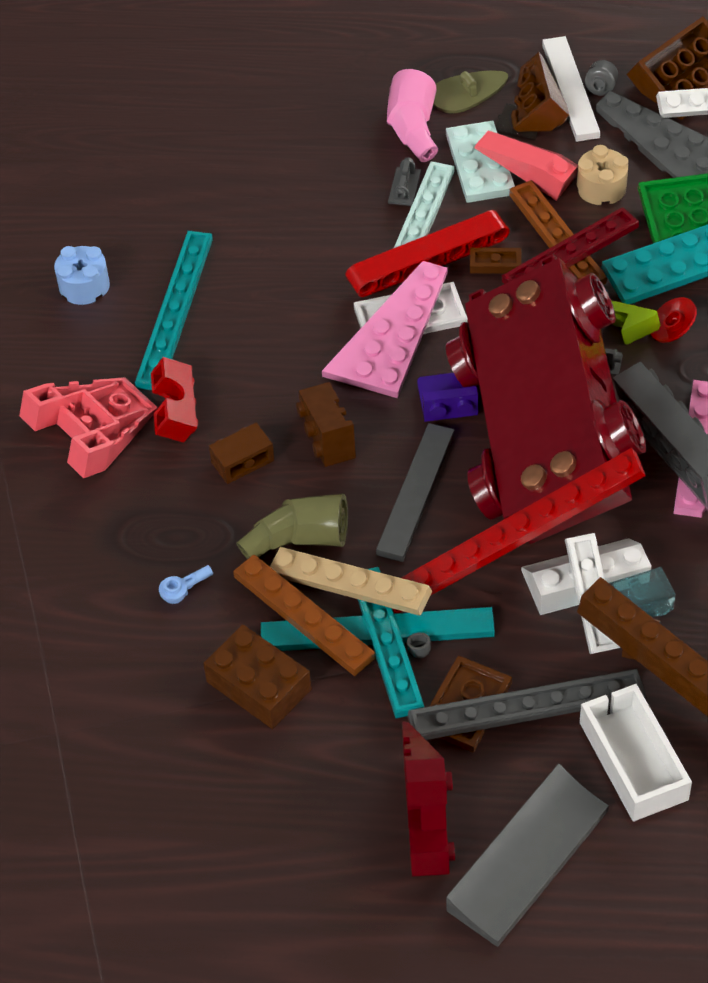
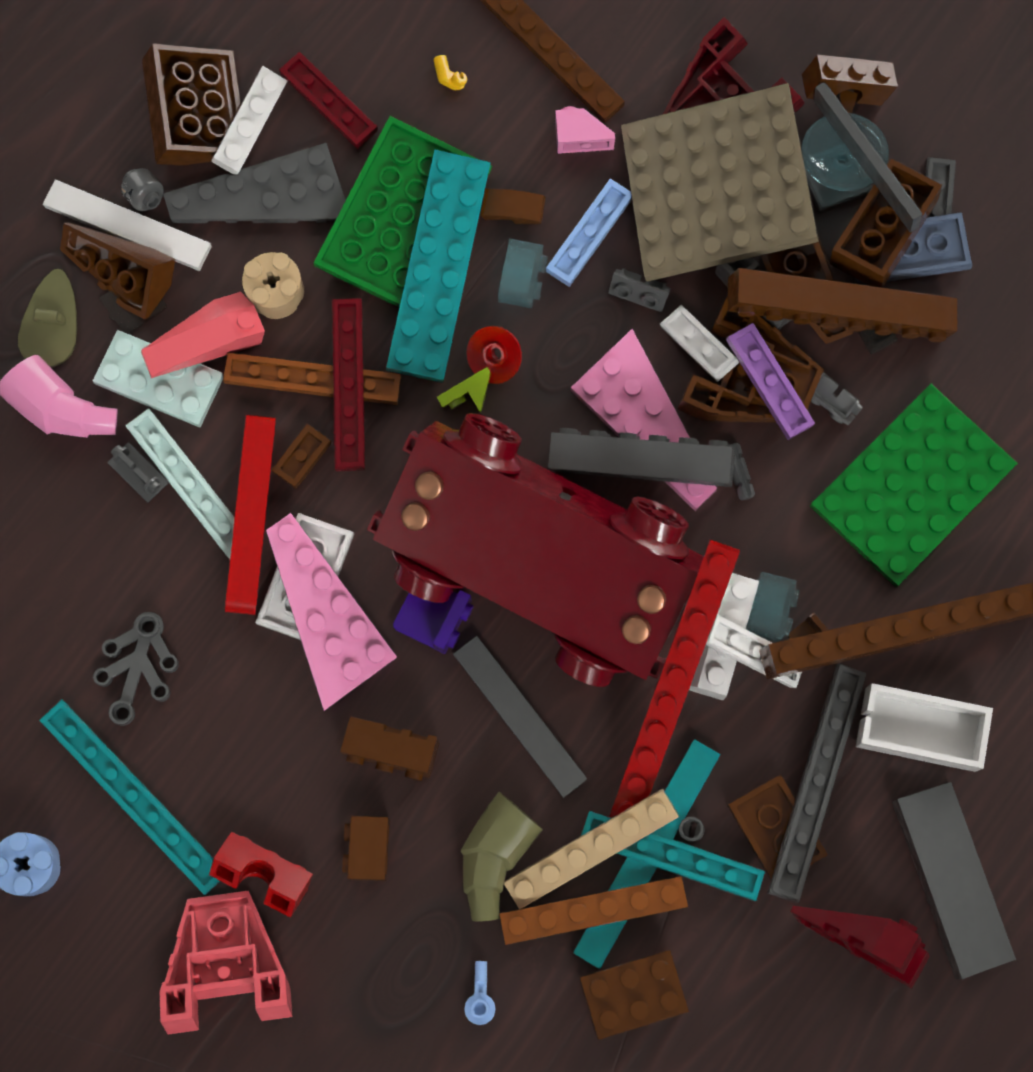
camera: 60 degrees left, 25 degrees up
(296, 251) = (137, 663): none -> dark grey plant

